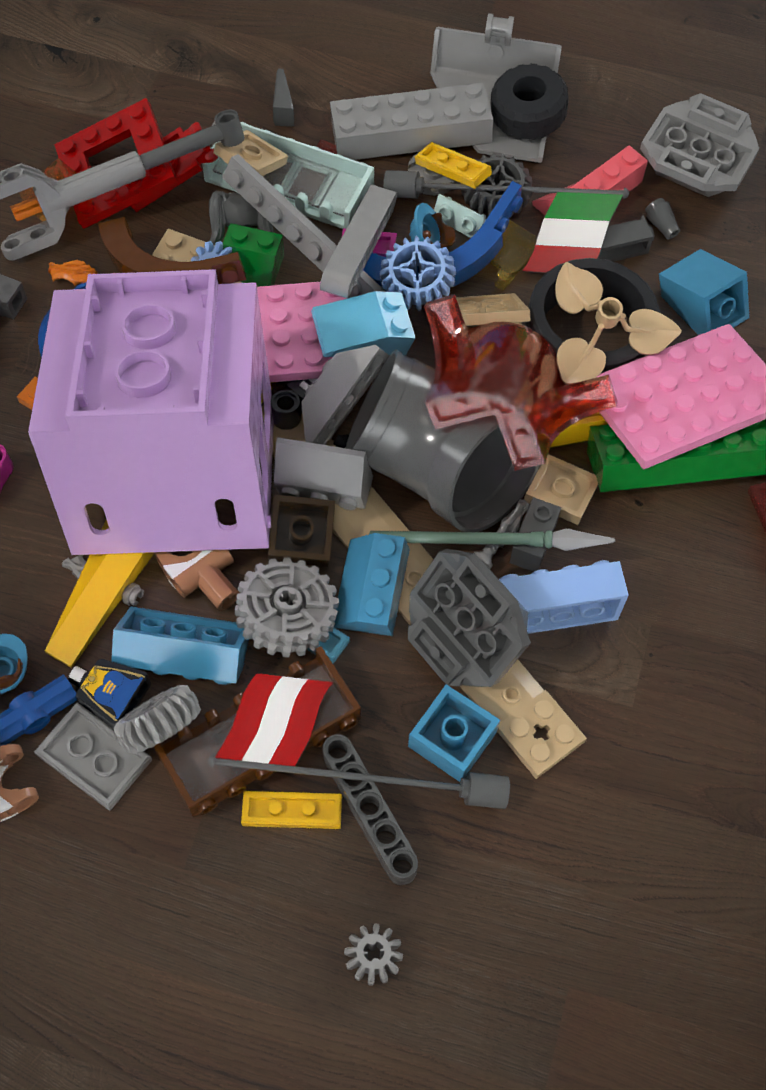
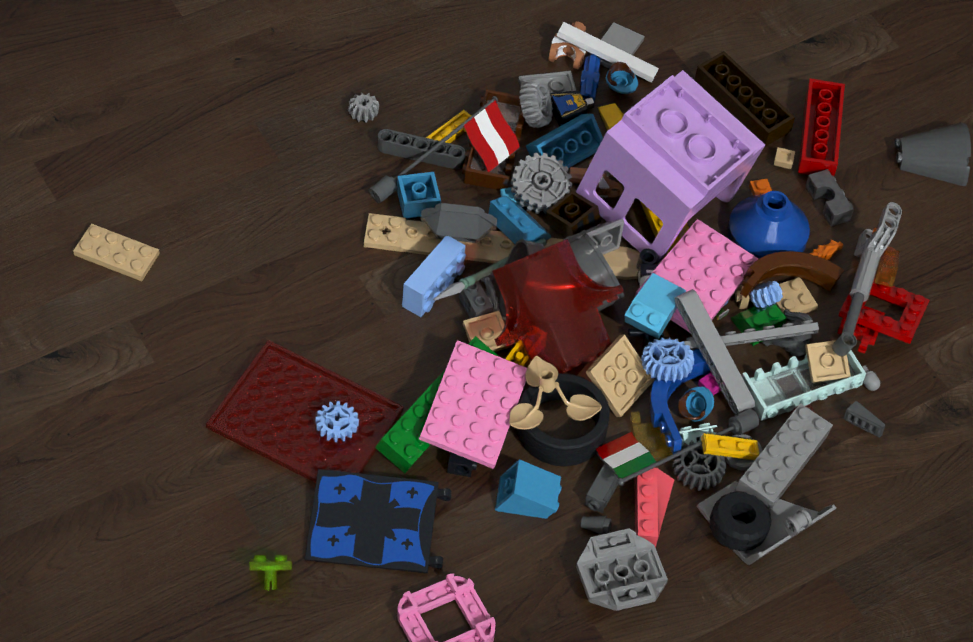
camera: 130 degrees right, 10 degrees down
(338, 391) = (628, 271): light grey wedge -> none

